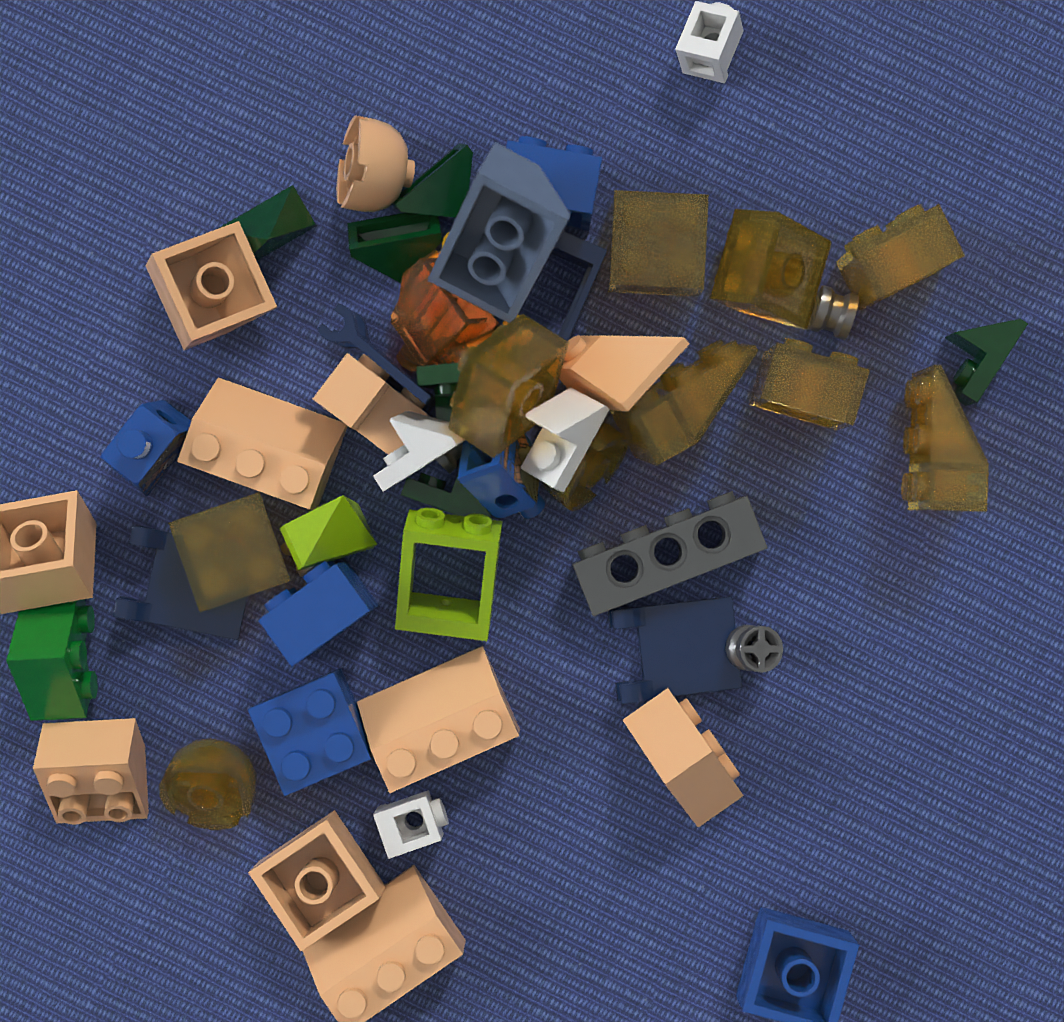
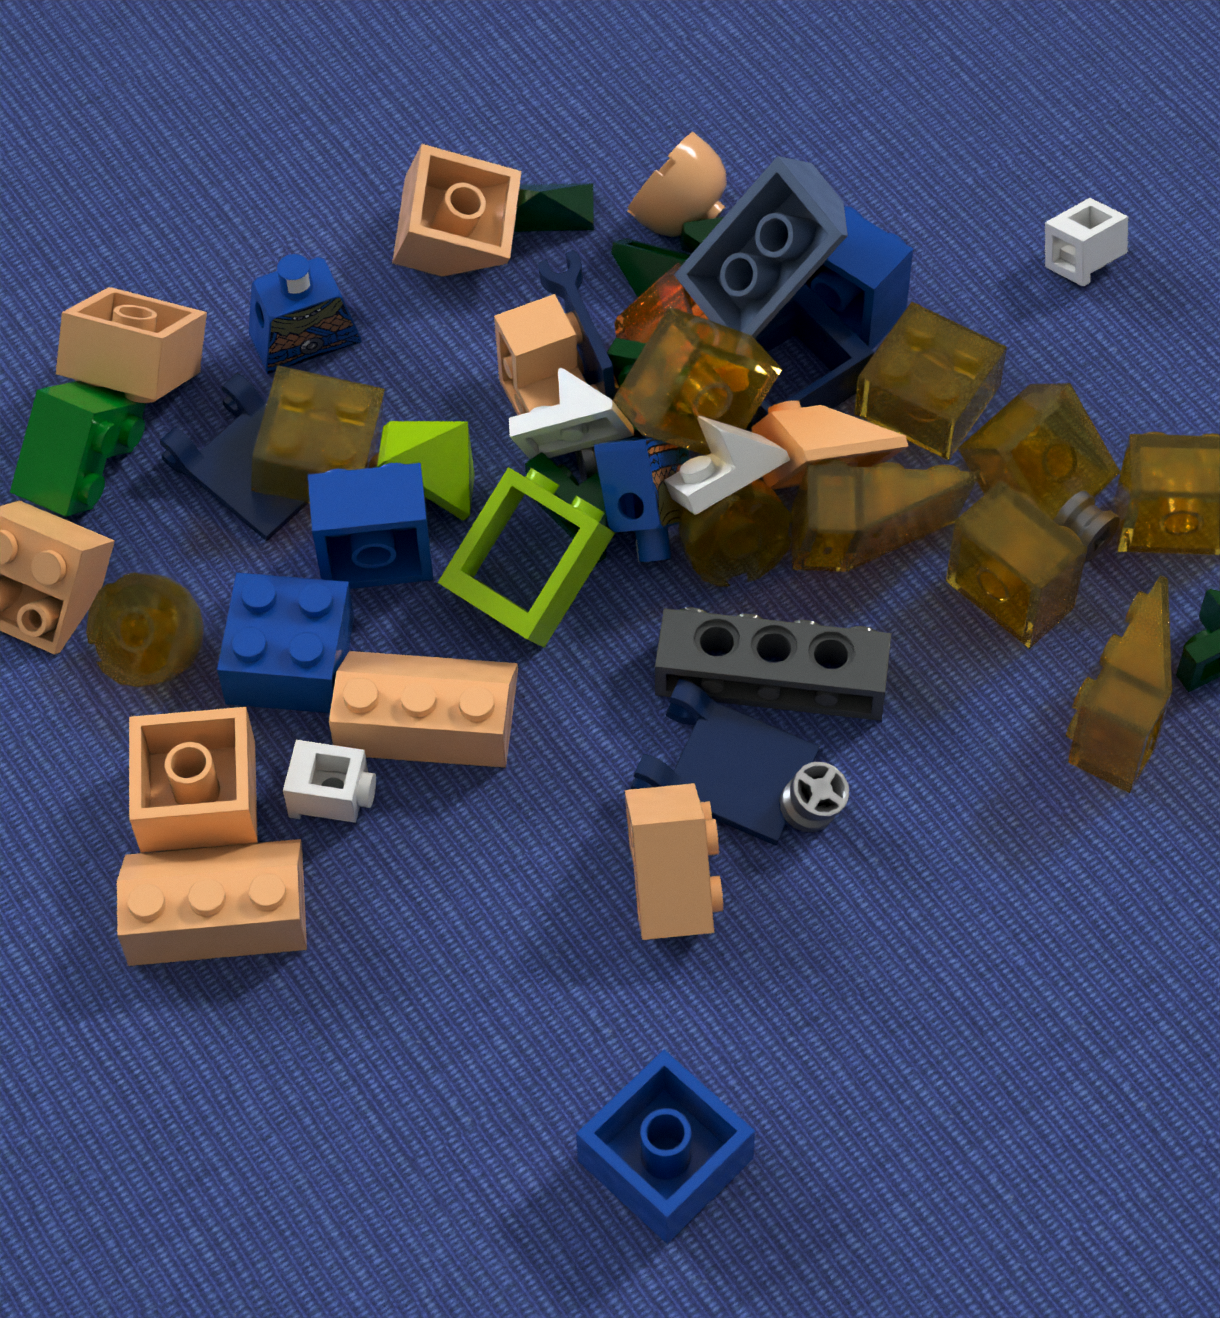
camera: 35 degrees right, 30 degrees down
(263, 443) = (414, 363): light nougat slope -> none

